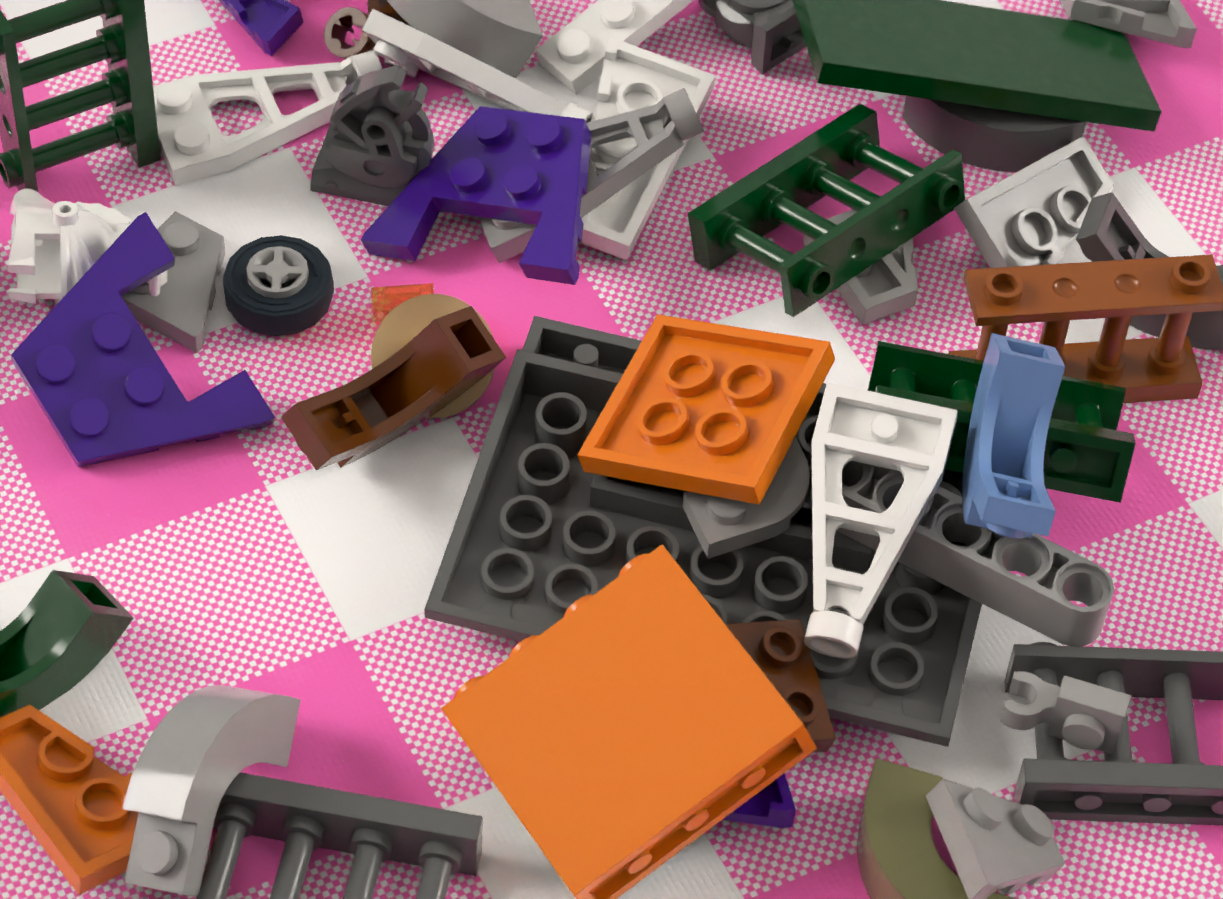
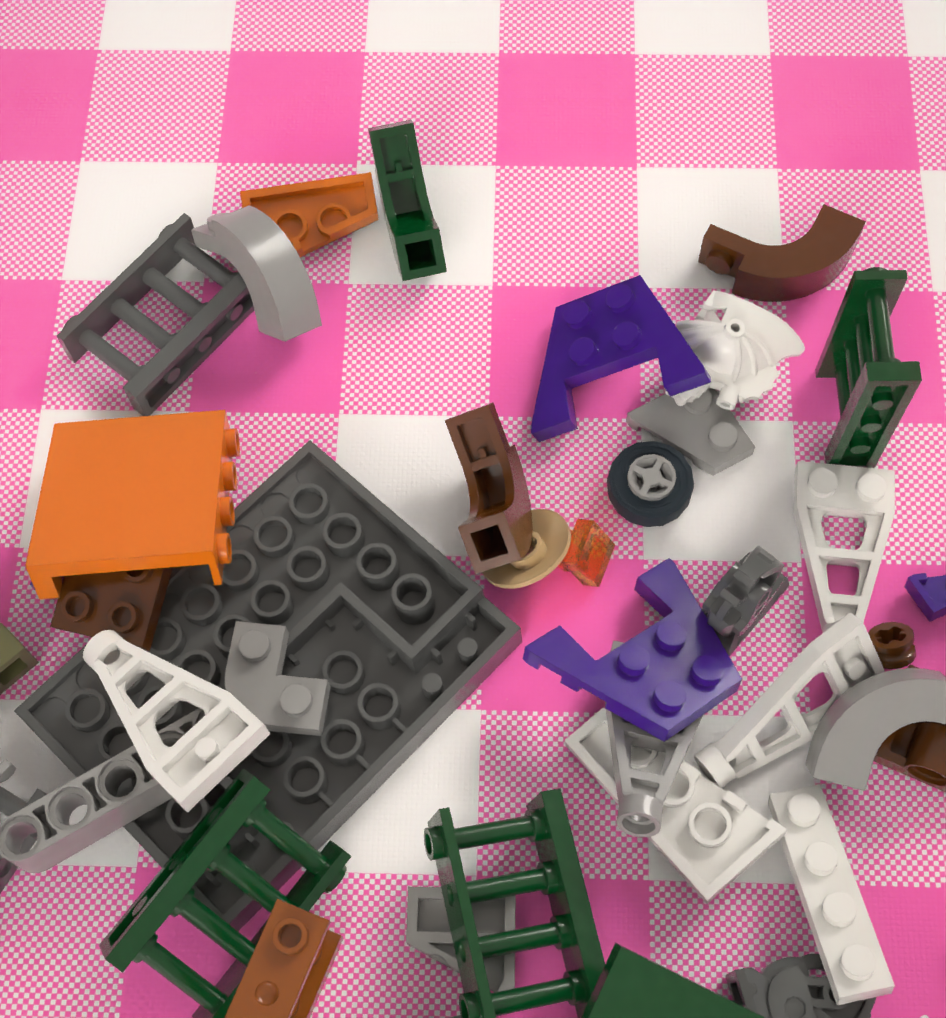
camera: 125 degrees right, 15 degrees up
(707, 408) = (329, 666): orange plate -> none
(1008, 438) = (134, 829): medium blue arch -> none

